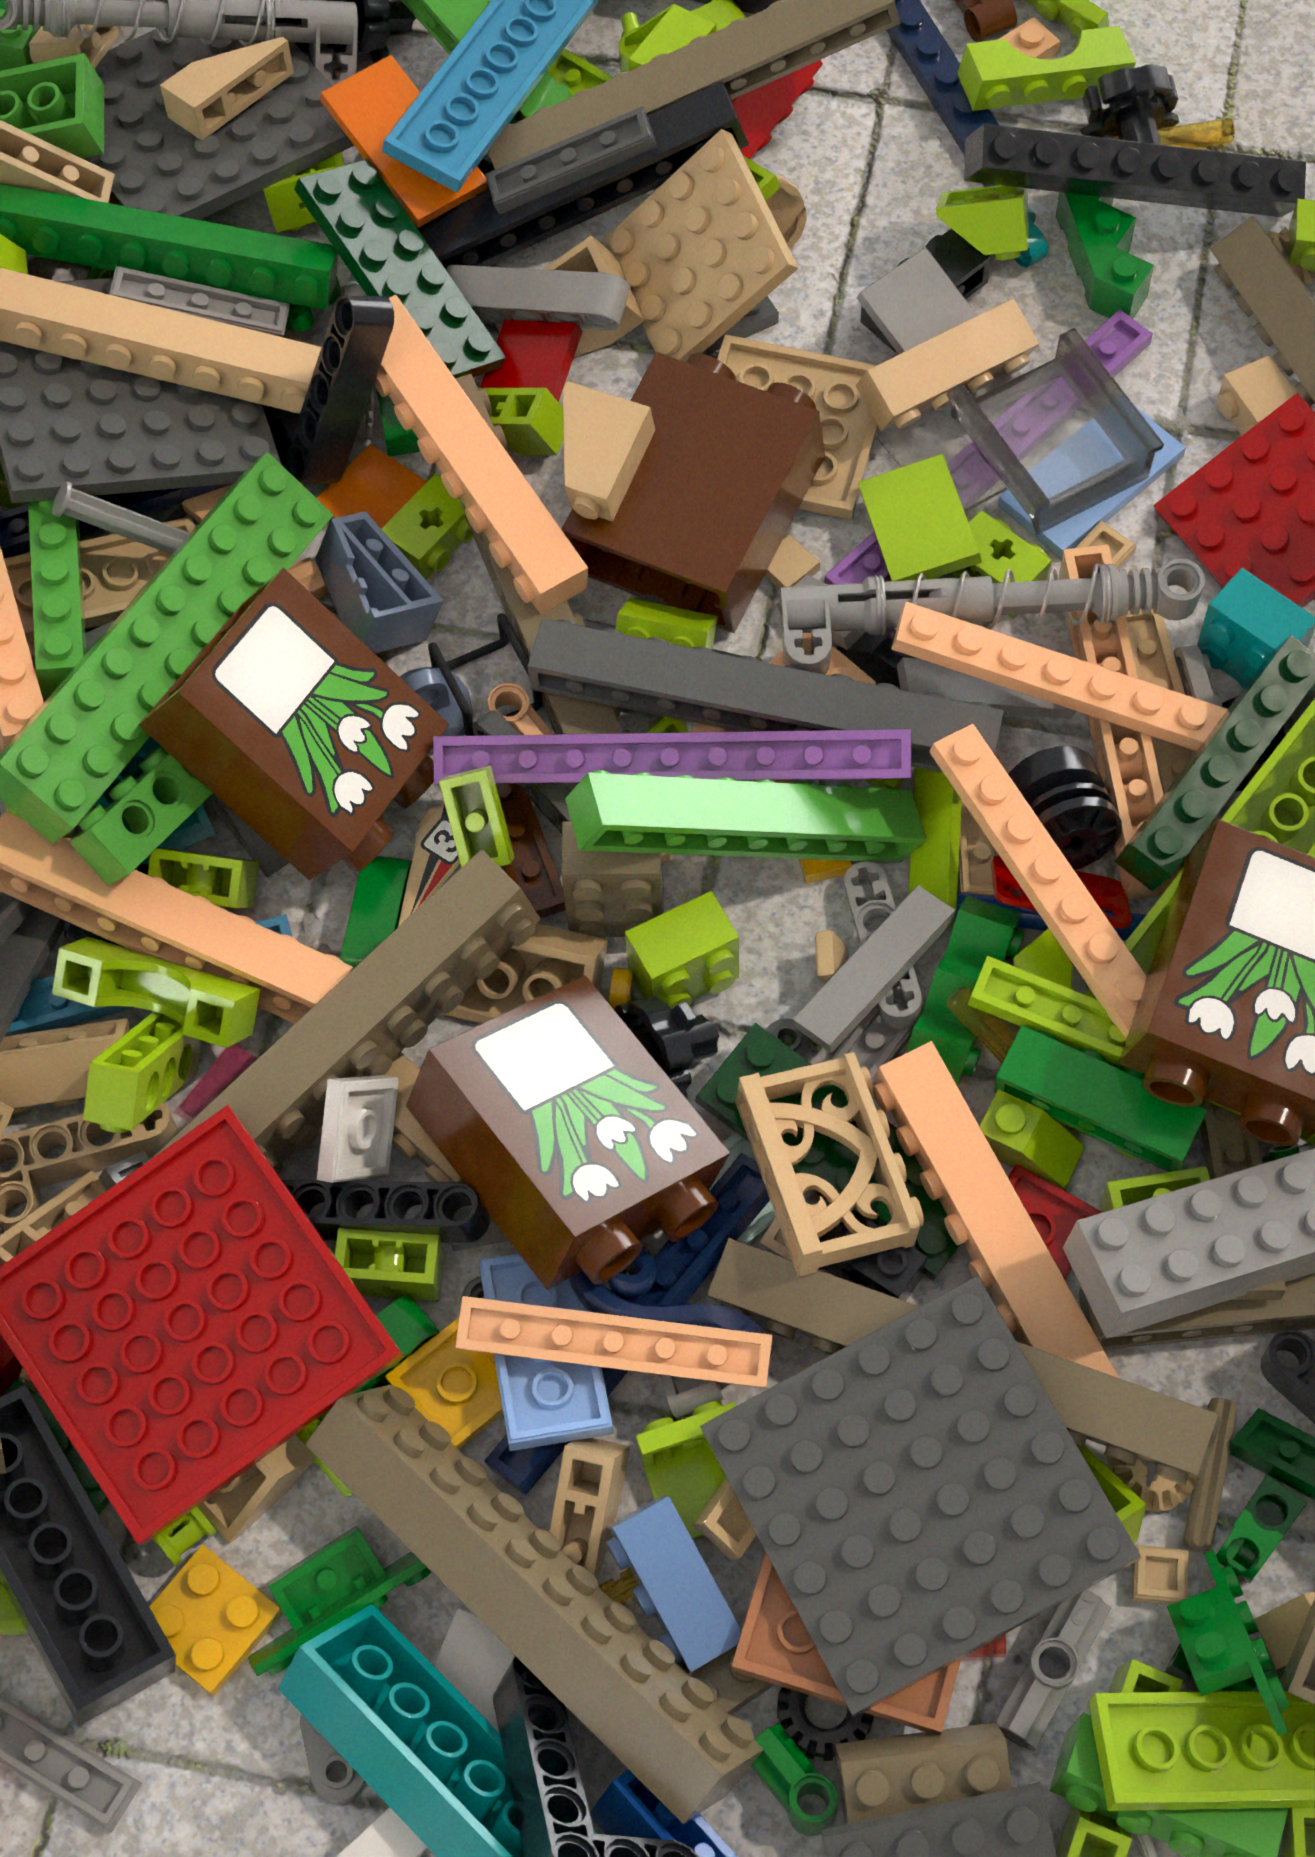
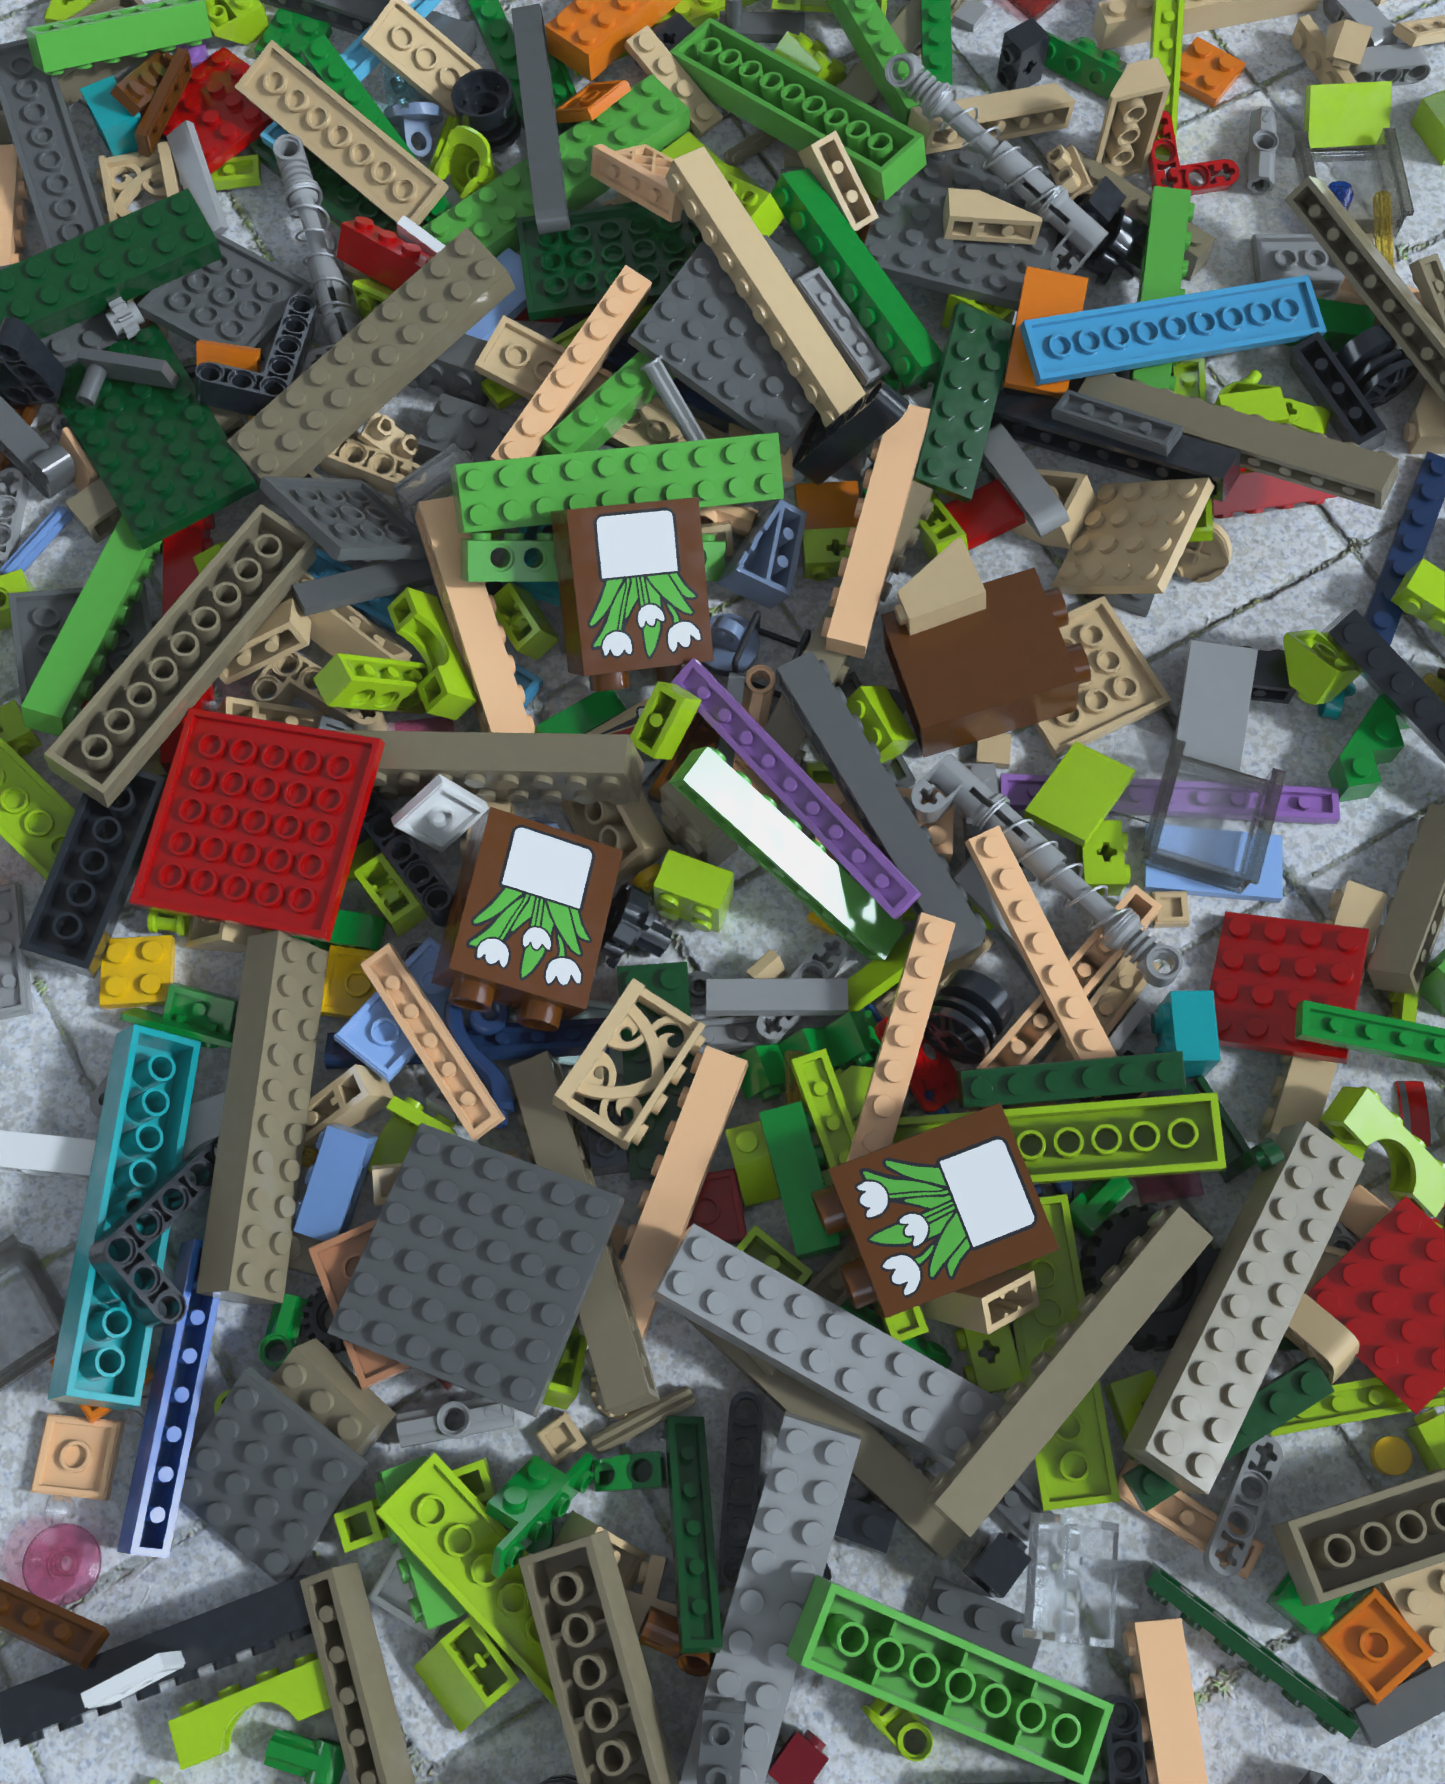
camera: 45 degrees right, 5 degrees up
(965, 355) = (1198, 724): tan brick -> none

